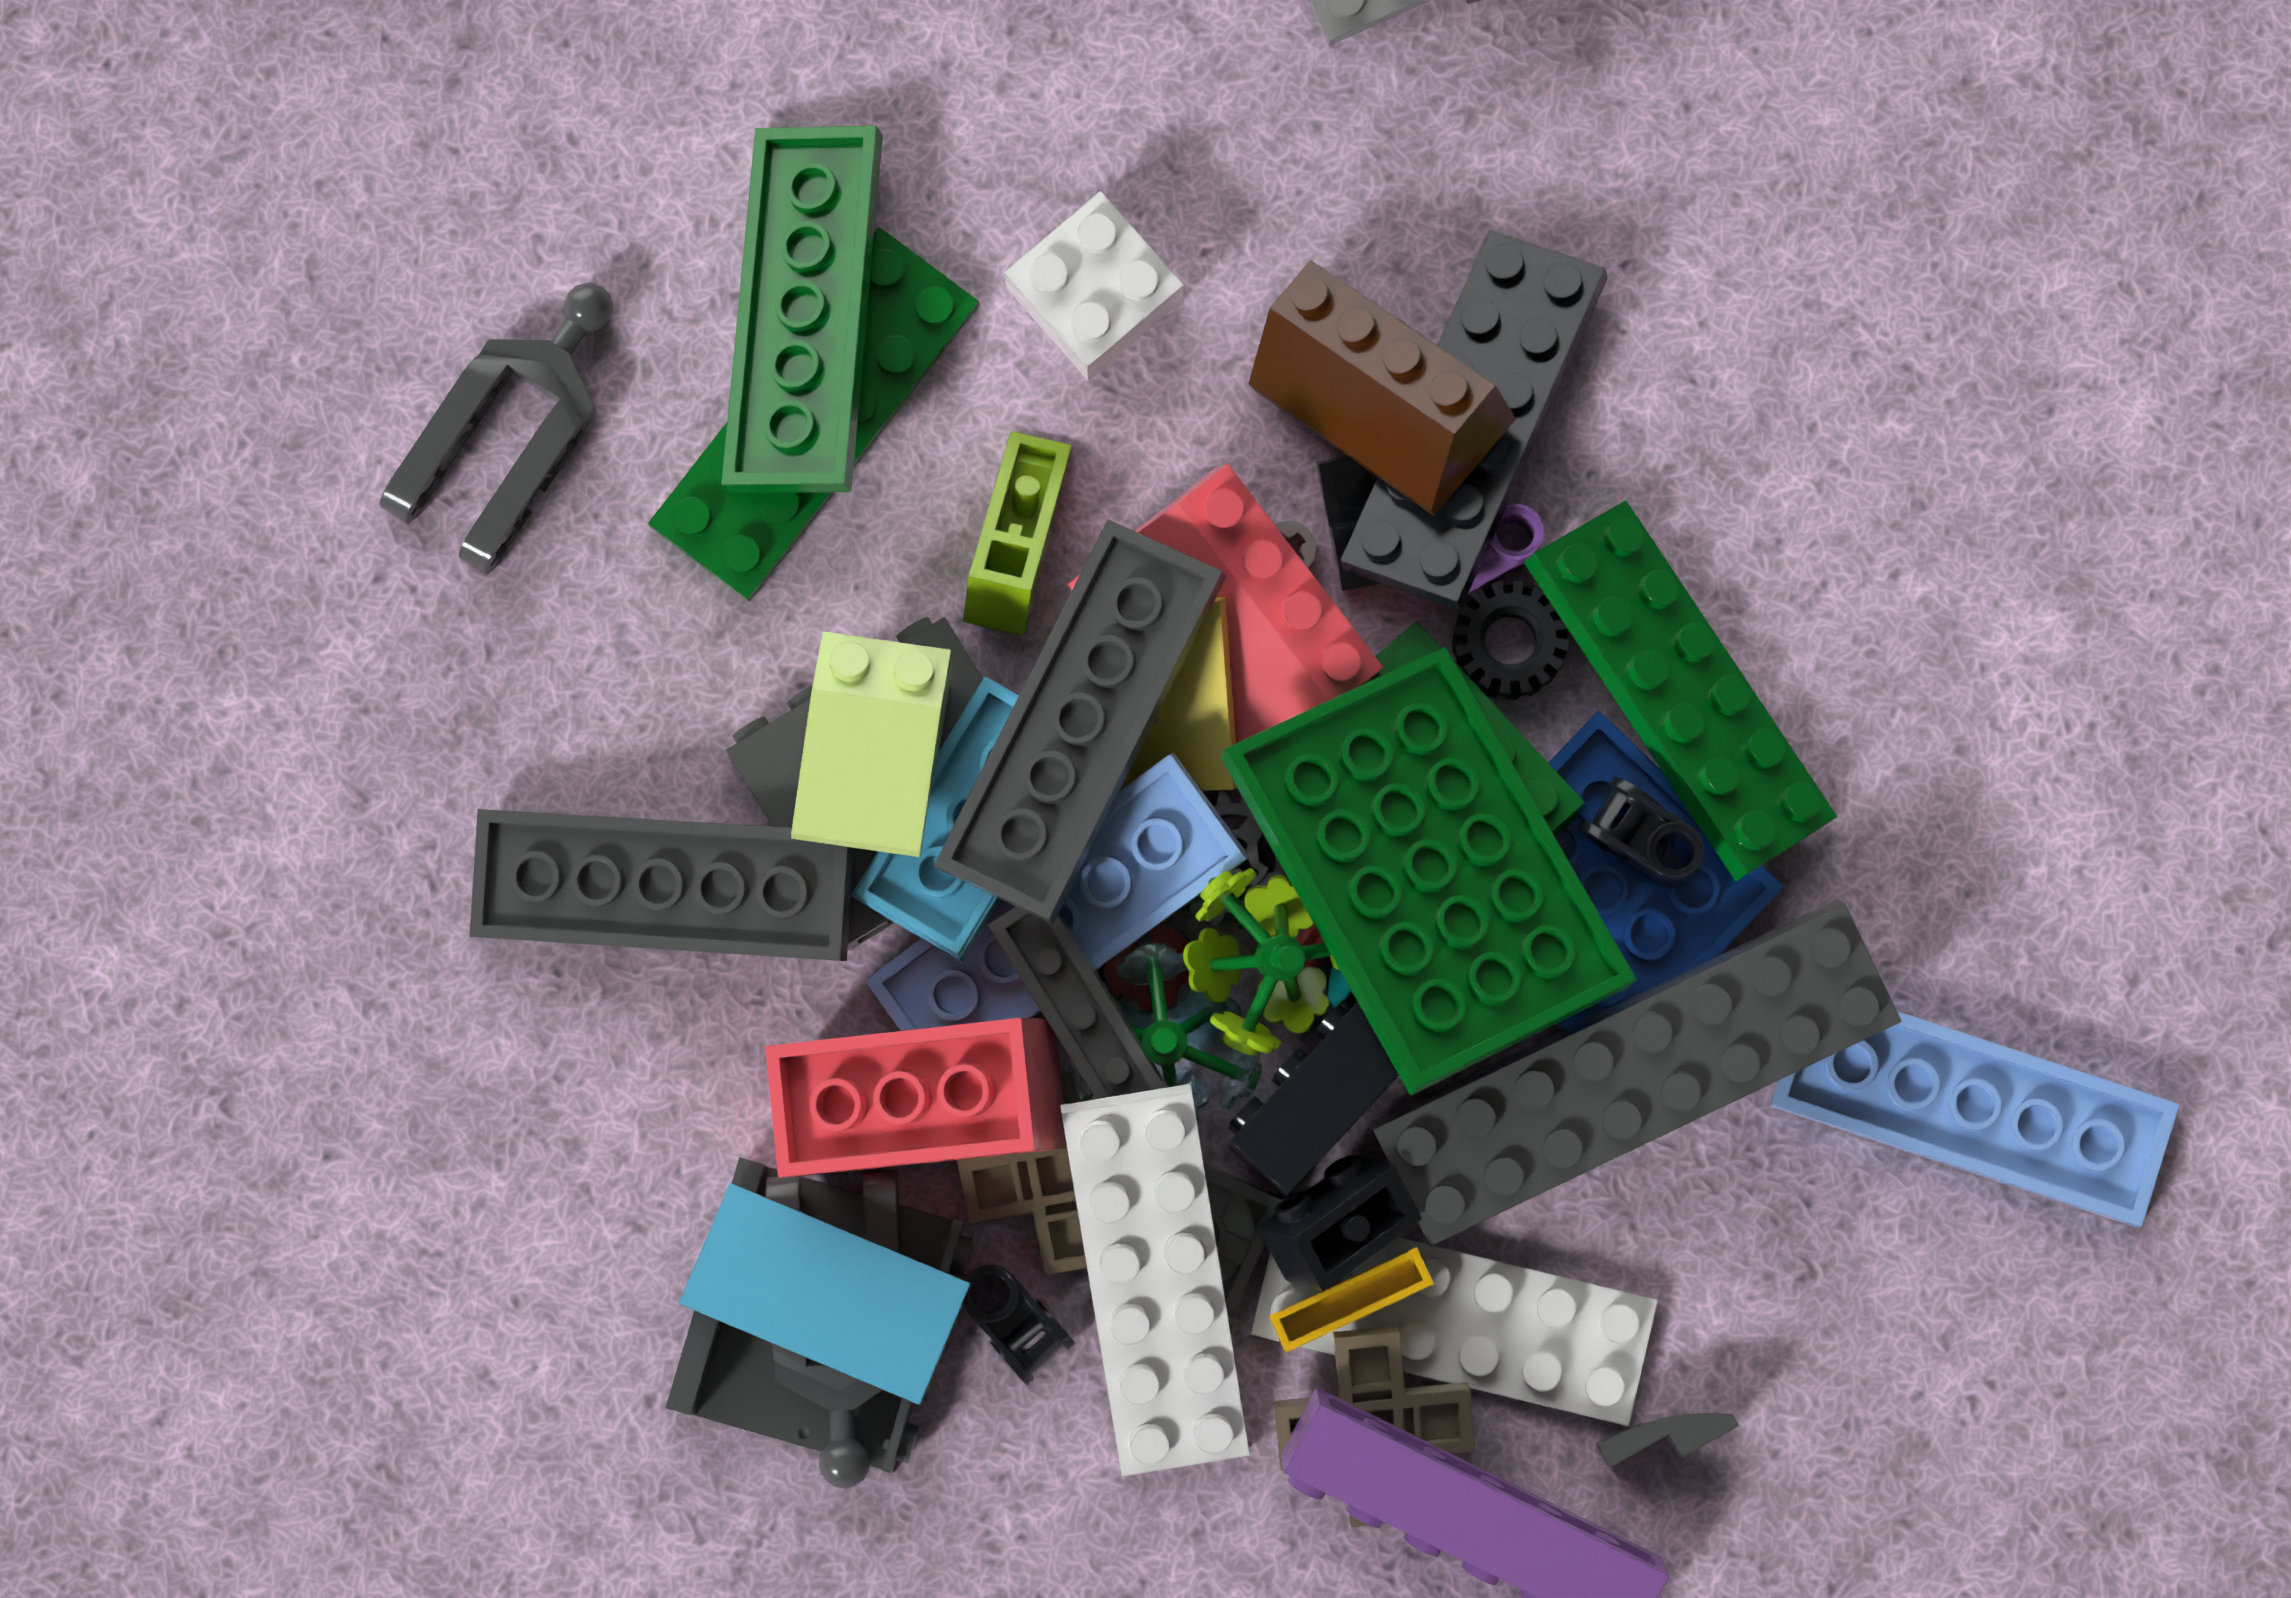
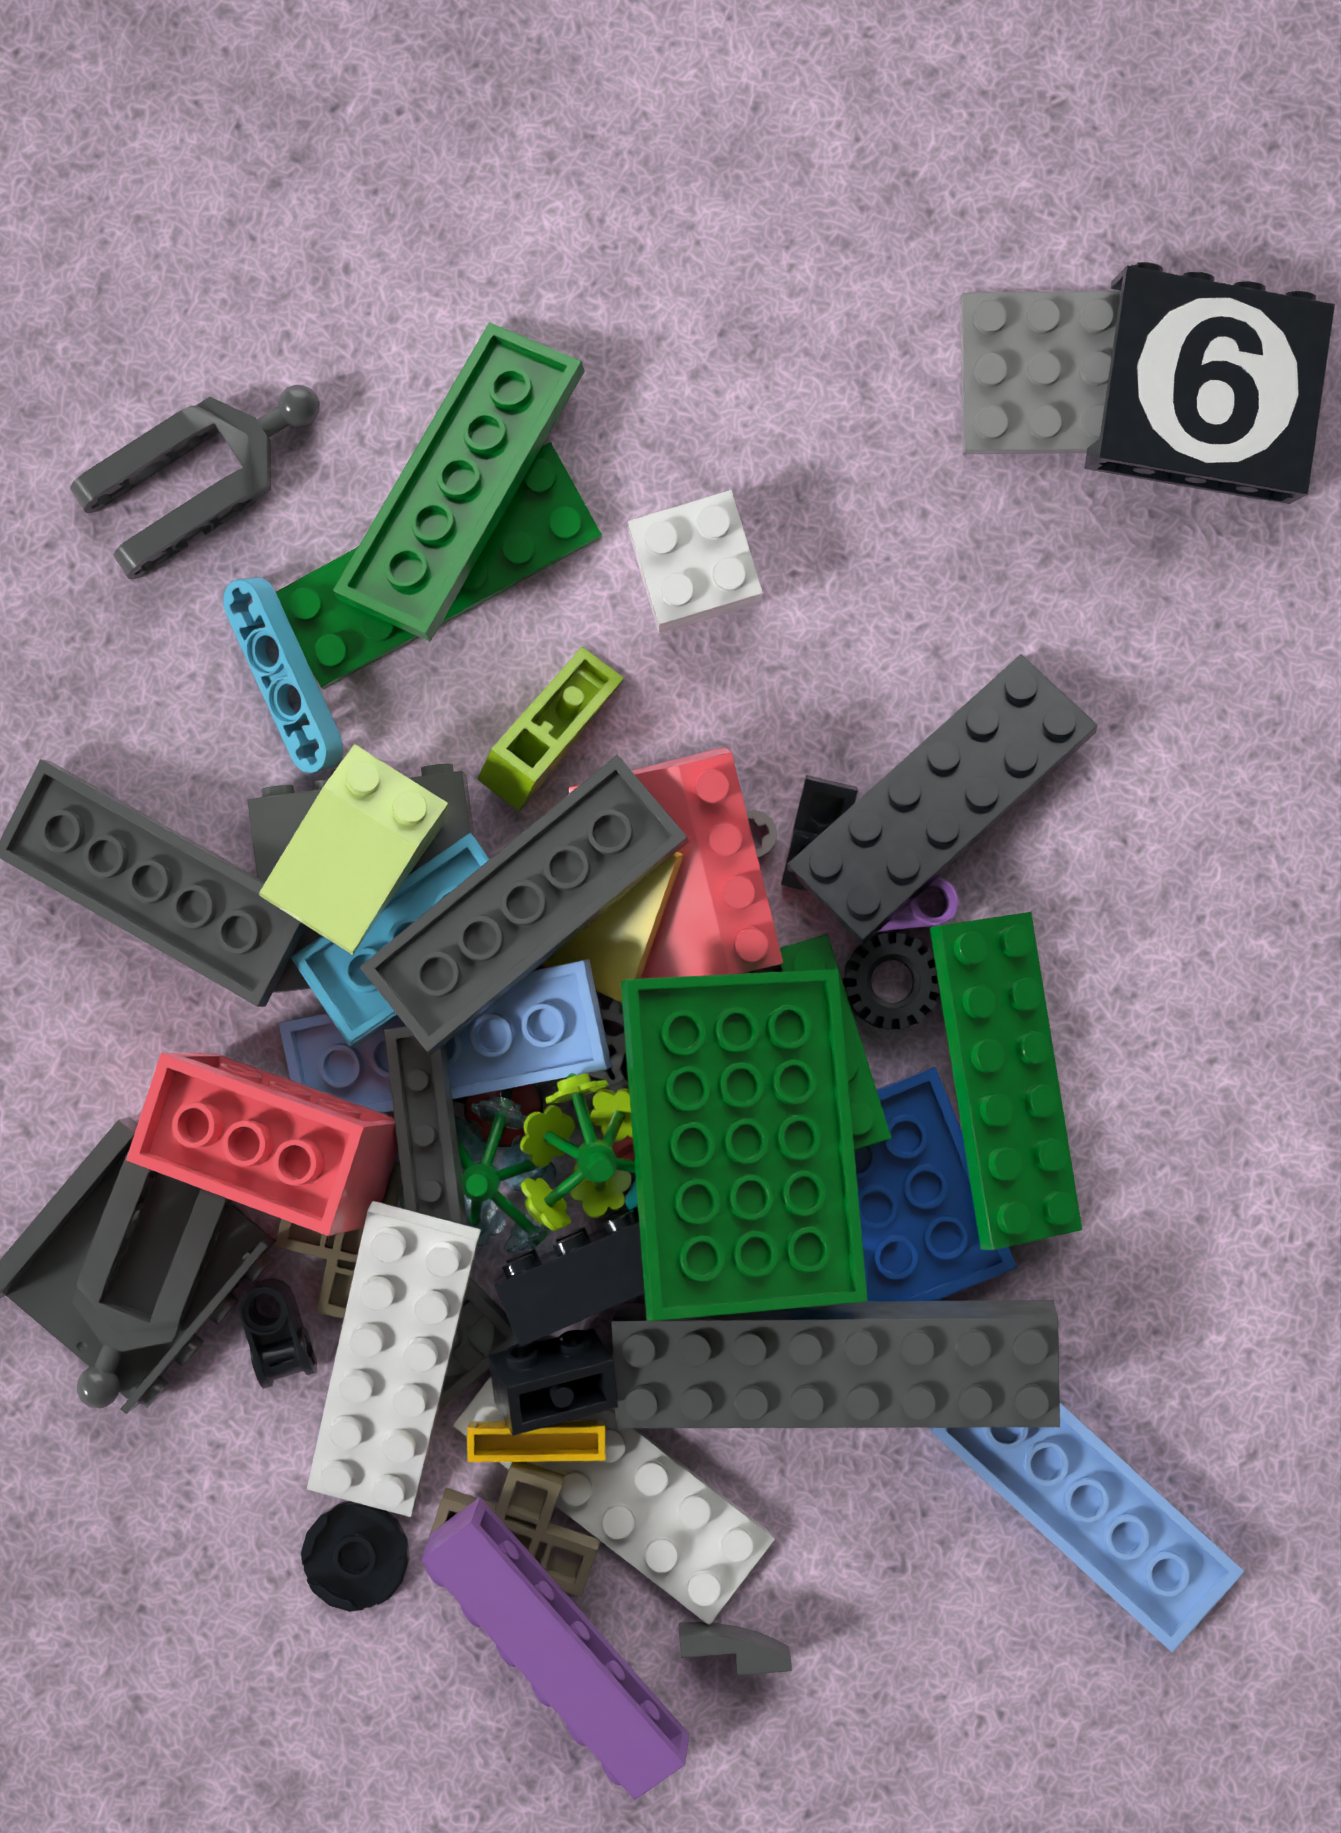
camera: 25 degrees right, 5 degrees up
(695, 611) = (277, 678): none -> medium azure beam
(824, 1293) = (133, 1257): medium azure tile -> none
(1198, 1496) = (367, 1541): none -> black tile
(1376, 388) = (876, 742): reddish brown slope -> none
(1641, 832) = (925, 1180): black piece -> none

